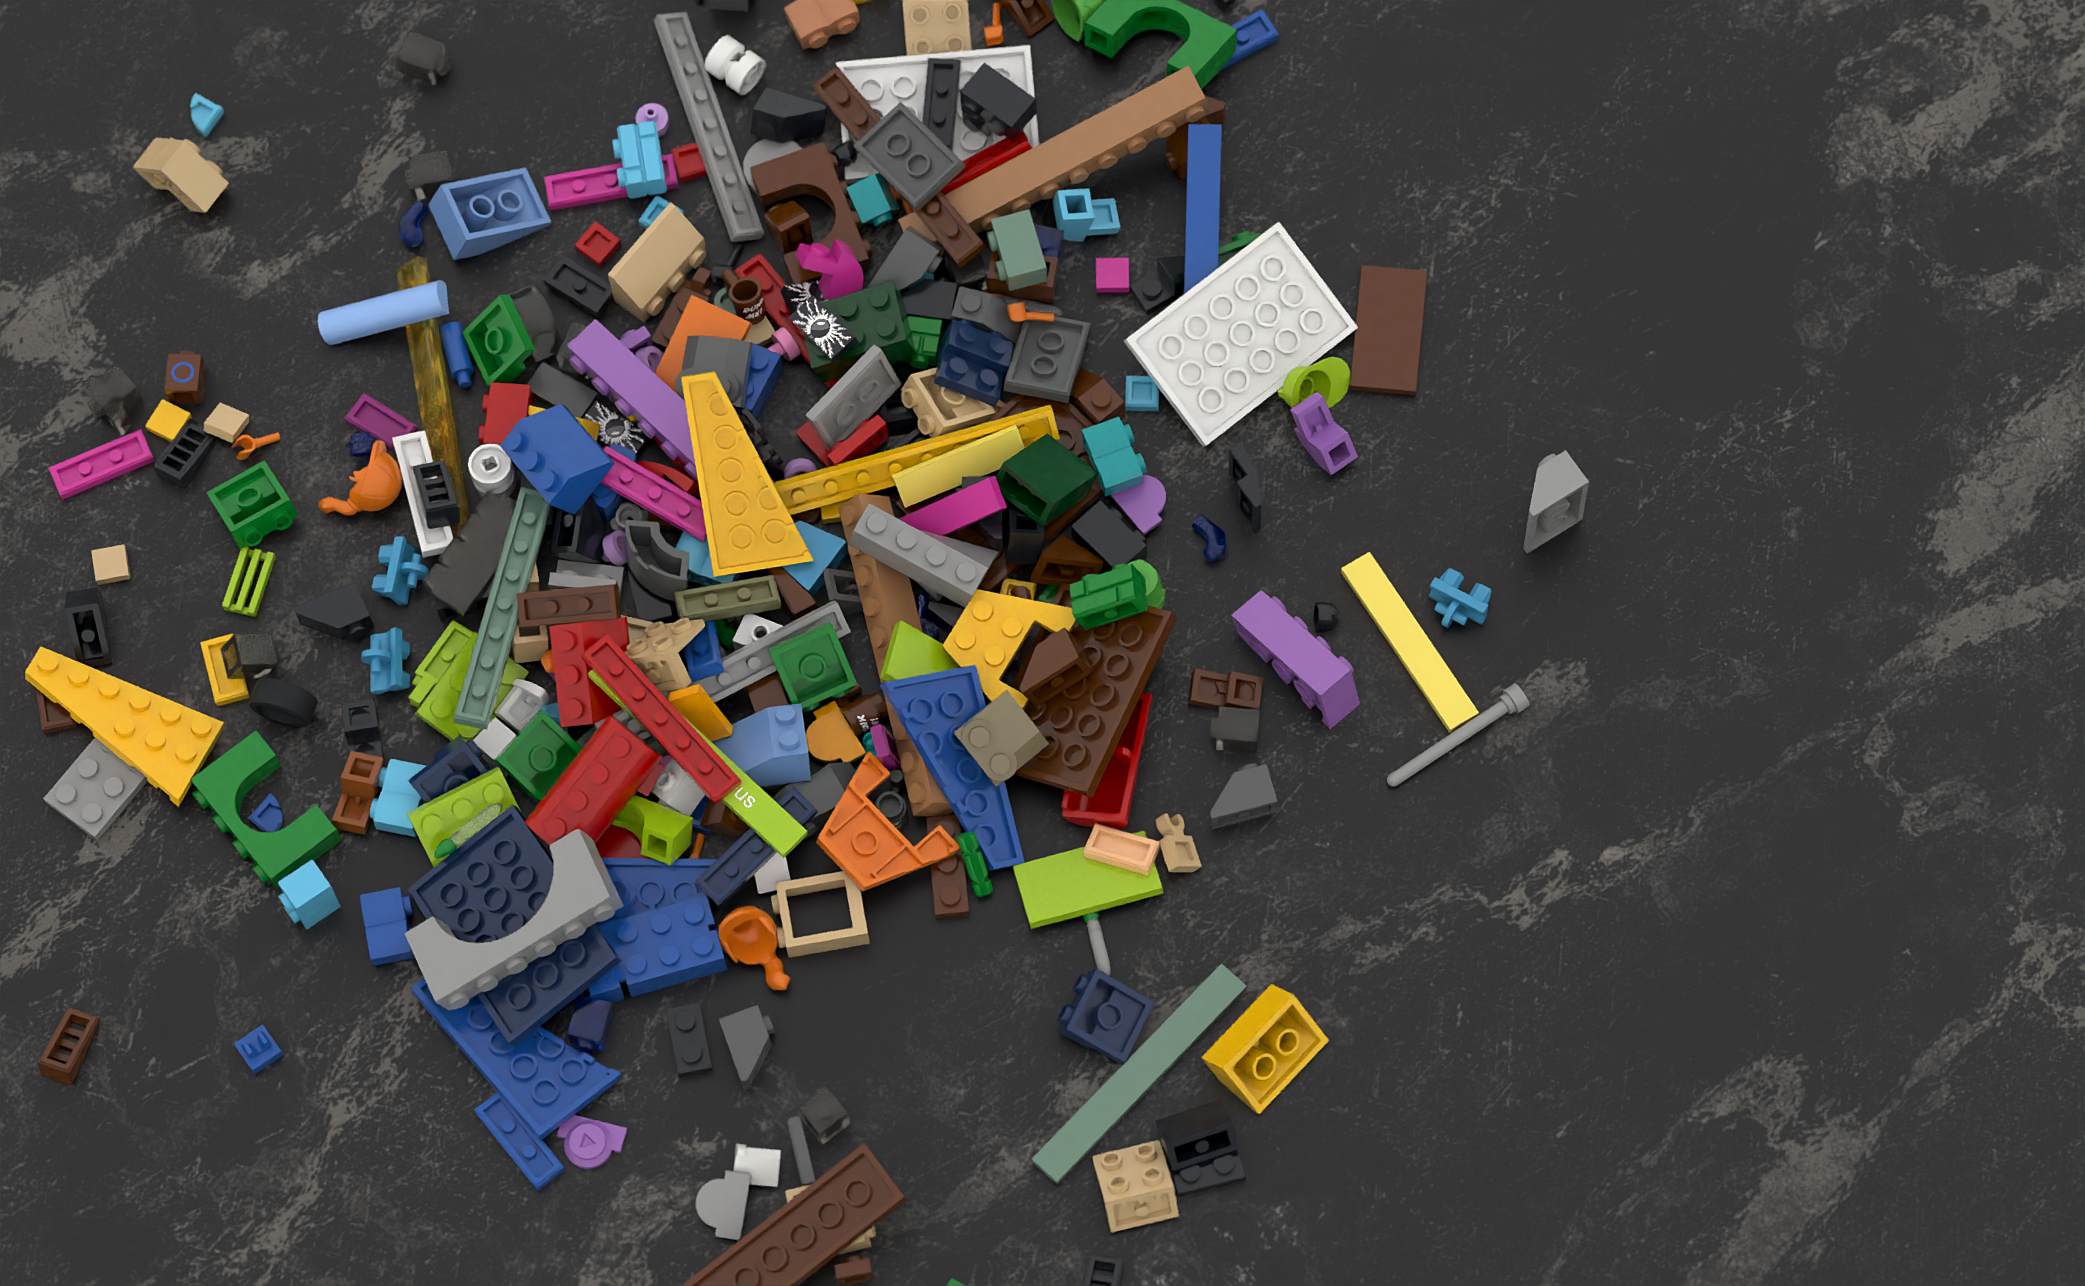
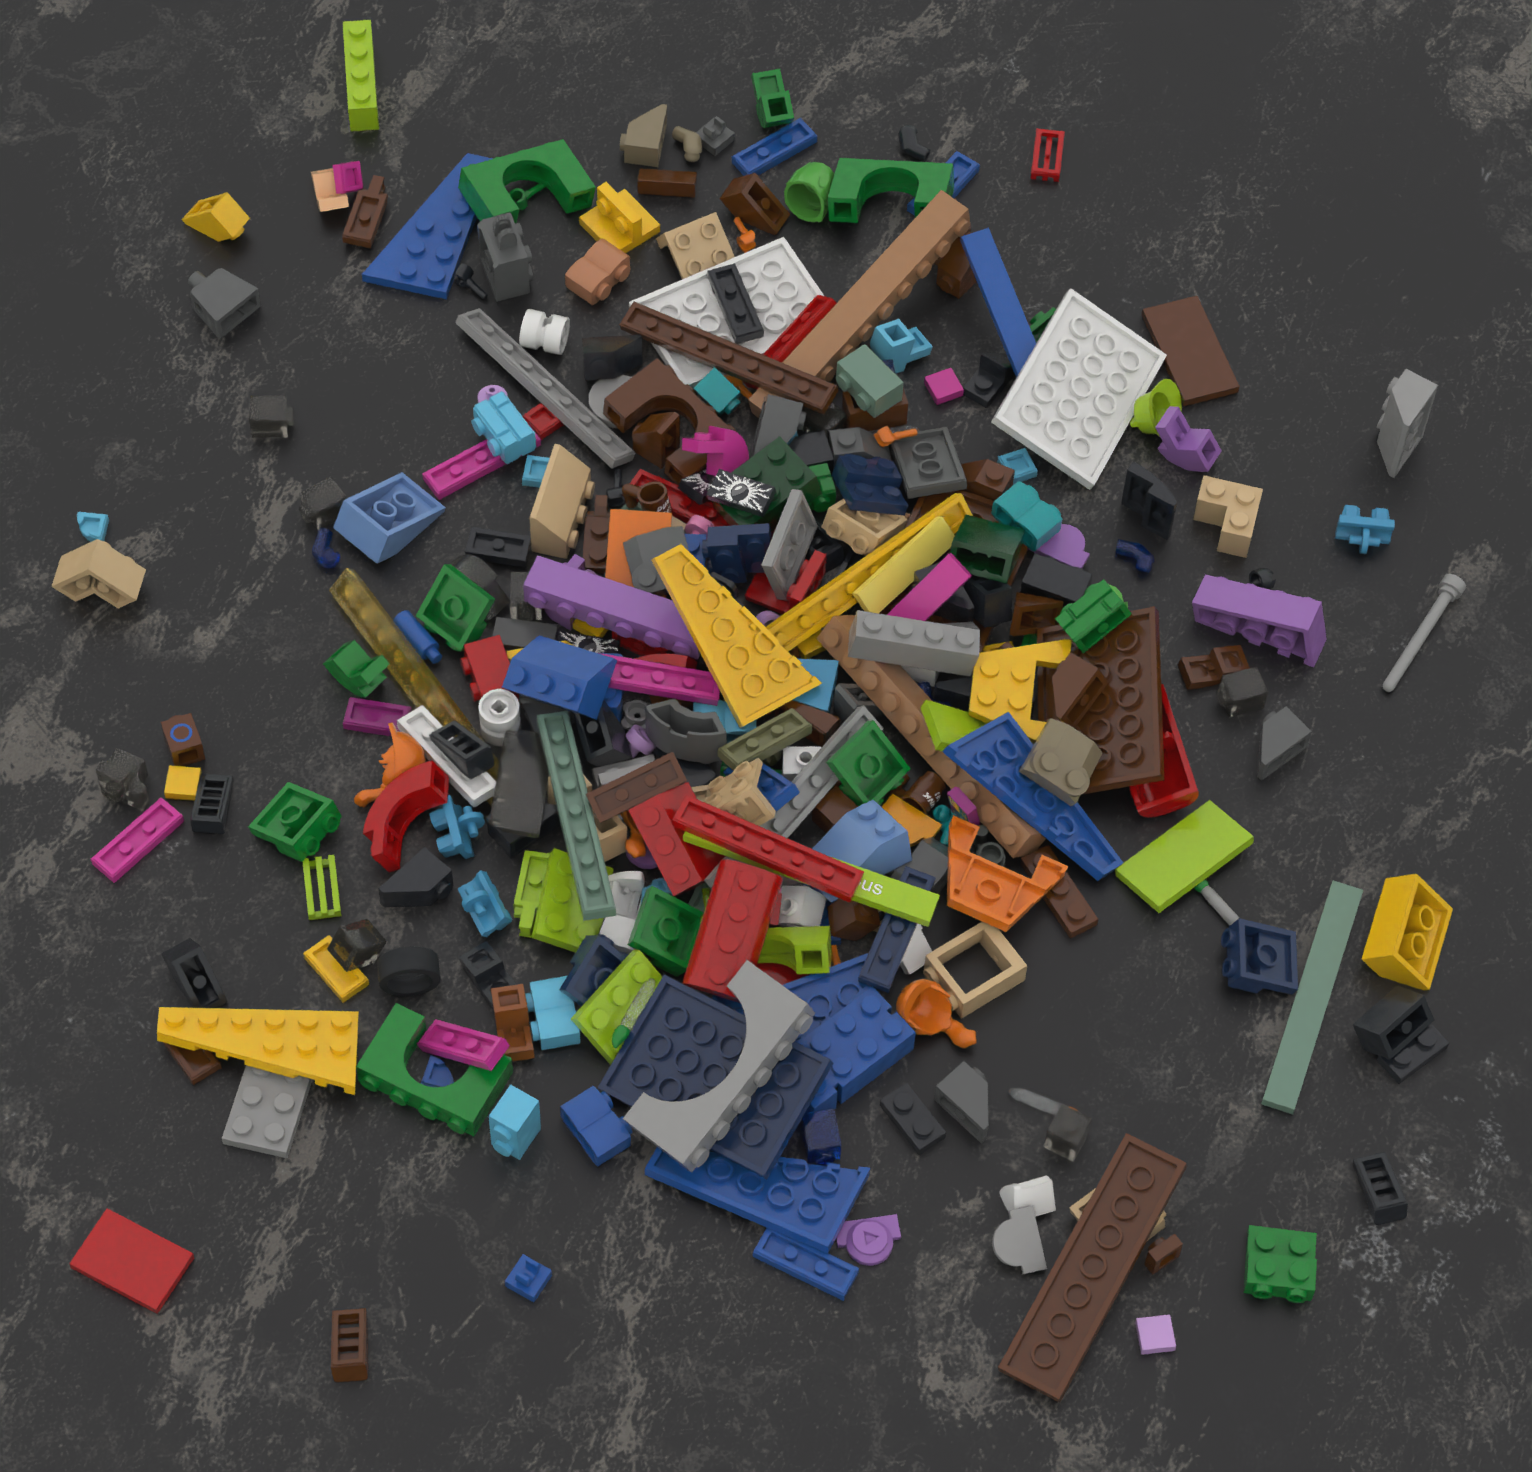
camera: 30 degrees left, 10 degrees down
(111, 564) = (187, 919): tan tile -> none
(226, 422) = (237, 764): tan tile -> none
(250, 444) = (267, 774): orange hand -> none
(299, 797) = (463, 1044): none -> dark pink tile
(347, 531) = (398, 806): none -> red arch
(361, 444) = (370, 738): clear blue plate -> none
(380, 366) = (356, 669): none -> green brick
(384, 312) = (339, 623): light blue brick -> none
(597, 244) = (495, 511): red tile -> none
(701, 712) = (792, 827): light orange tile -> none
(795, 384) = (736, 550): none -> dark blue plate
(801, 1150) = (1064, 1171): dark grey tile -> none
(823, 1077) = (1036, 1100): none -> clear piece
(845, 153) = (677, 363): black hinge -> none
(909, 156) = (737, 343): dark grey tile -> none
(975, 863) = (1086, 876): green axle -> none
(995, 104) = (787, 277): black brick -> none
(1121, 849) = (1201, 819): light nougat tile -> none
(1136, 1186) = (1366, 1085): tan bracket -> none
(1177, 848) = (1247, 804): tan plate -> none
(1334, 530) = (1233, 508): none -> tan brick
(1345, 69) = (1045, 172): none -> red tile
(1409, 642) = (1341, 576): light yellow tile -> none

